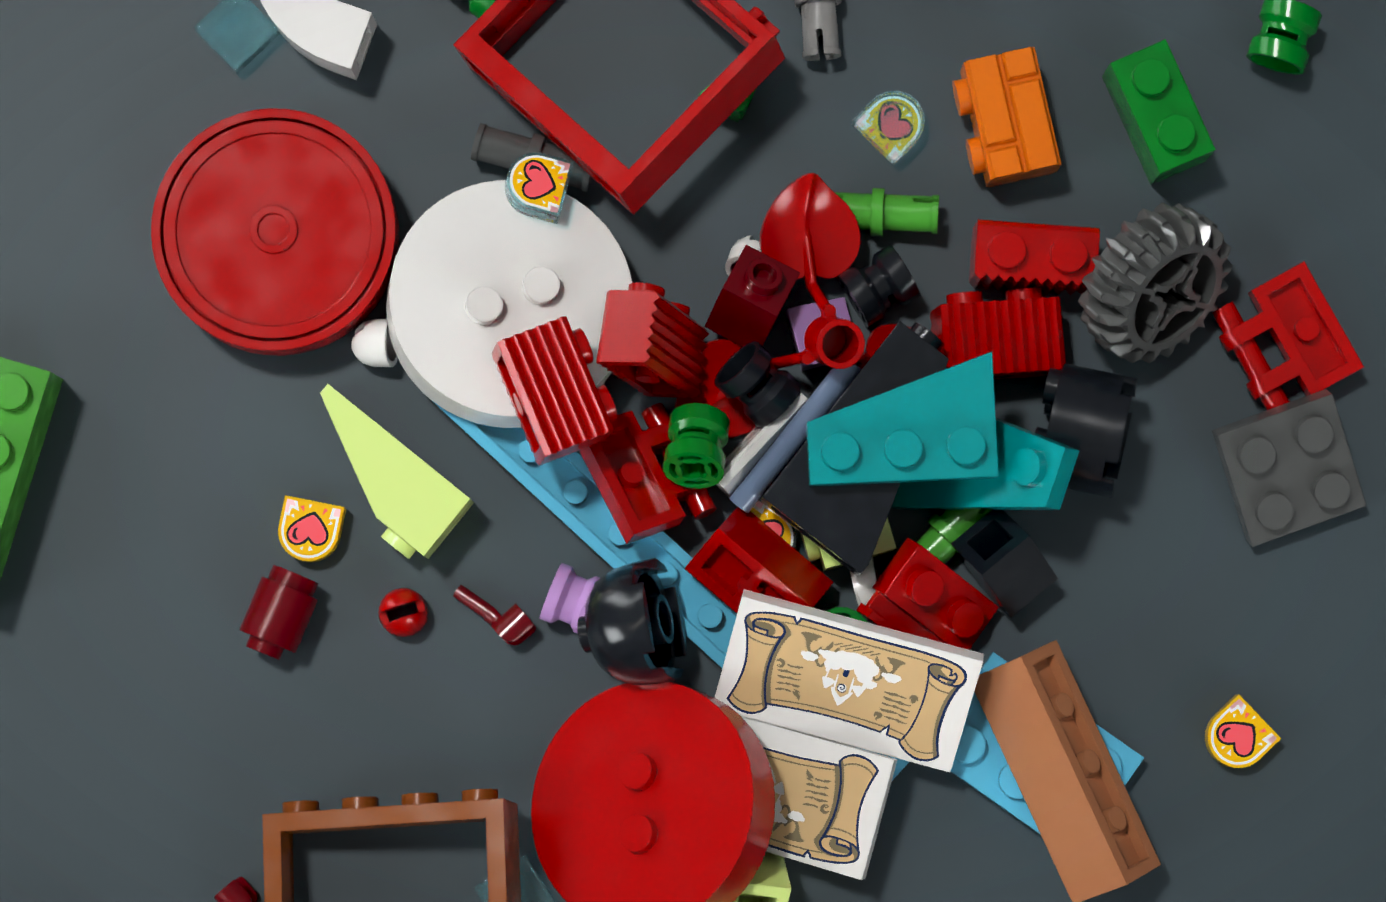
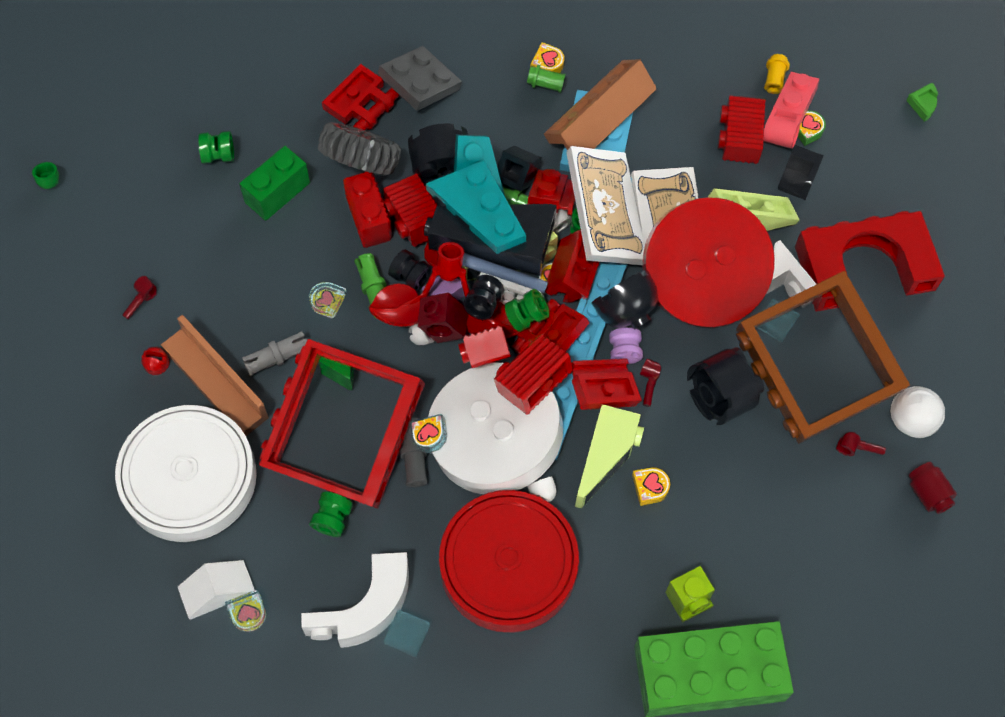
camera: 115 degrees left, 20 degrees down
(95, 499) = (690, 593): none -> lime brick
(279, 612) = (701, 479): dark red brick -> none
(408, 624) = (666, 428): red hinge -> none
(416, 726) = (724, 386): none -> black brick
(512, 525) = (604, 383): none -> red plate
(1007, 117) = (303, 245): orange brick -> none
(1193, 709) = (545, 78): none -> bright green pin

